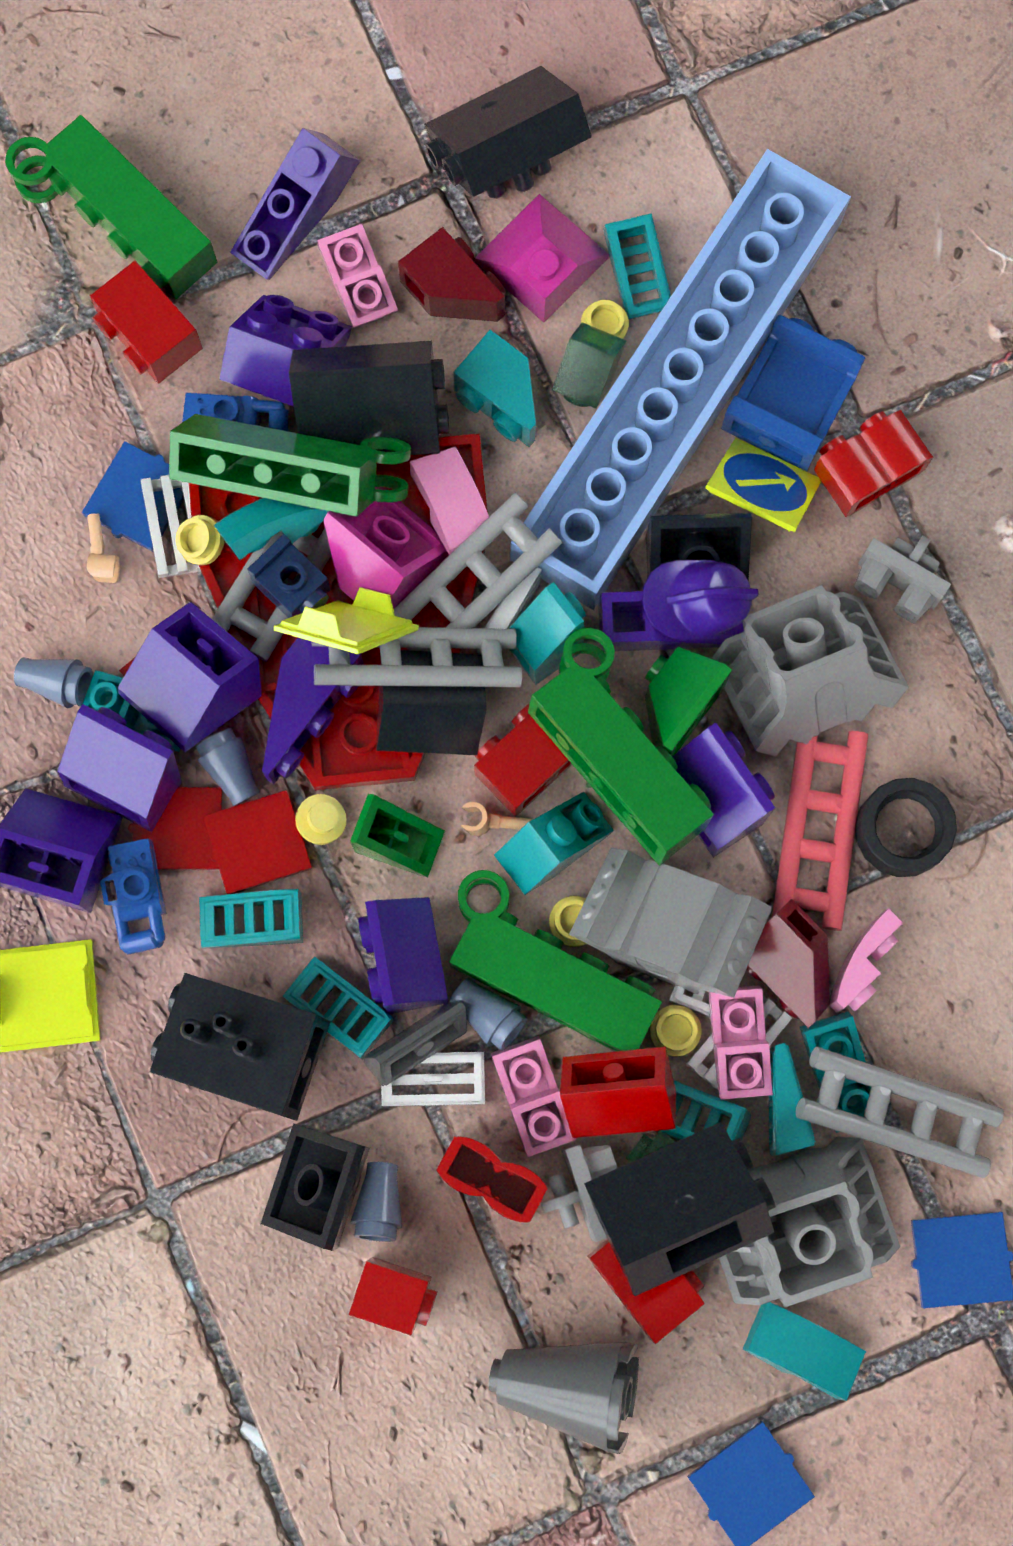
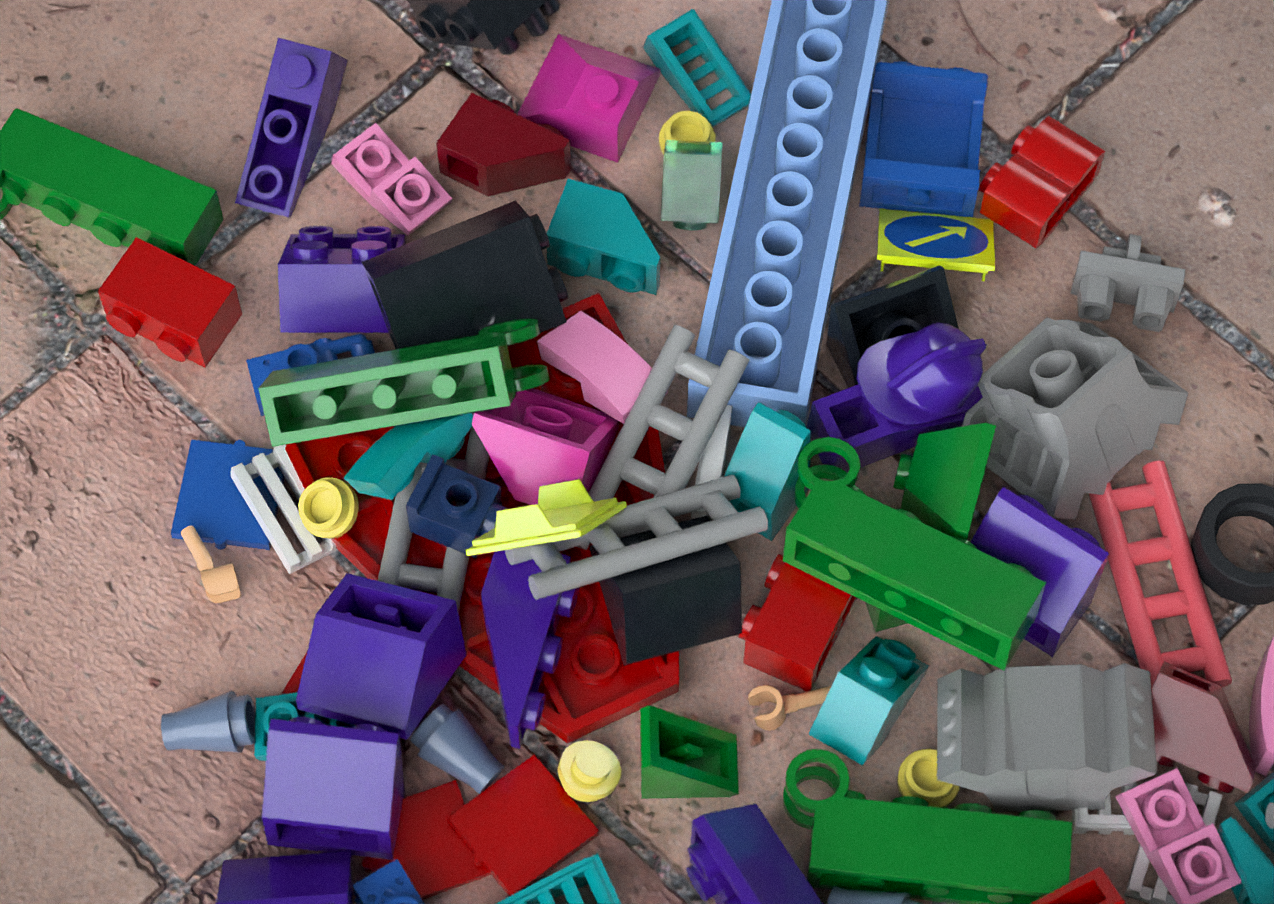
camera: 20 degrees left, 15 degrees down
(676, 1029) = (1098, 848): light yellow plate -> none

